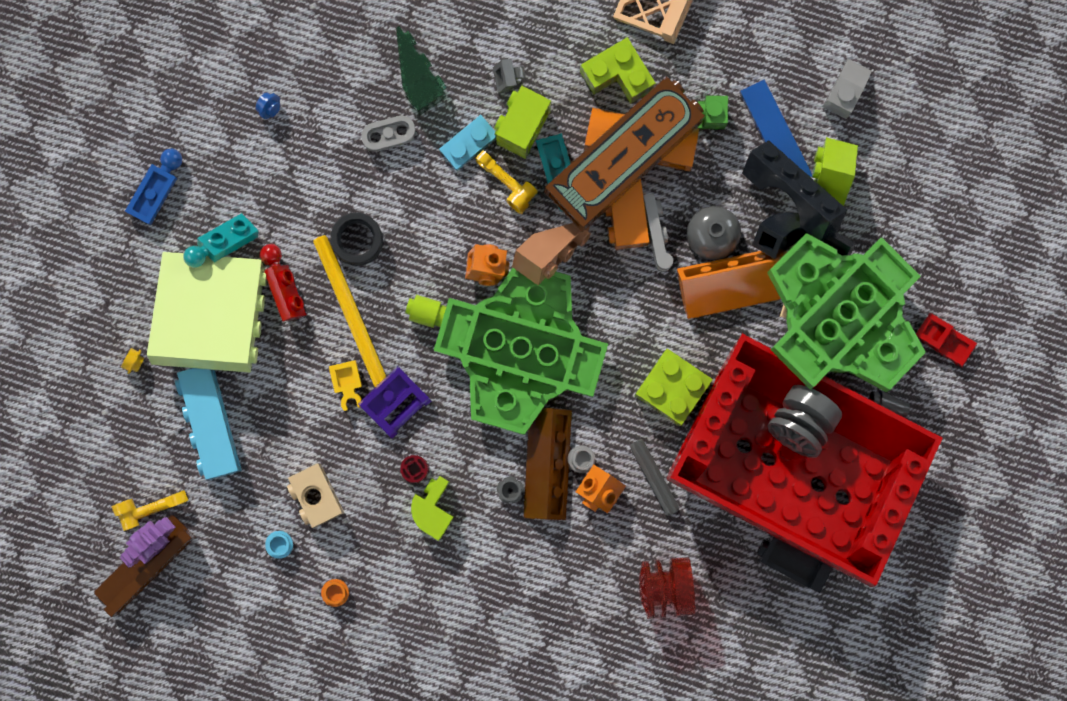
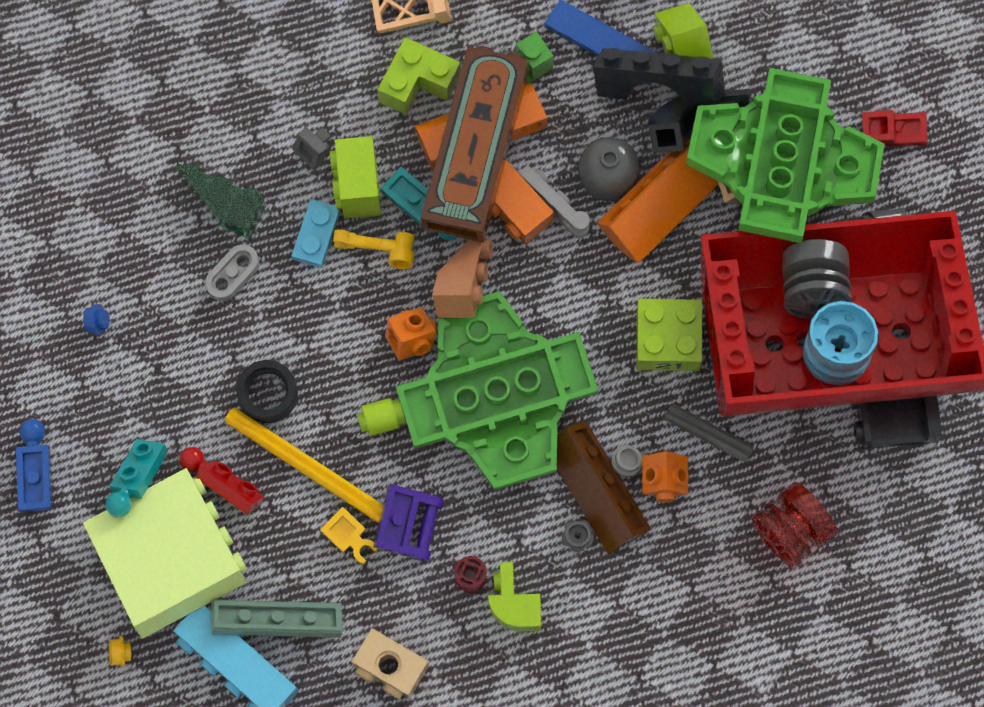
camera: 30 degrees left, 10 degrees down
(255, 411) = (276, 618): none -> sand green tile
(803, 476) = (842, 327): none -> medium azure wheel

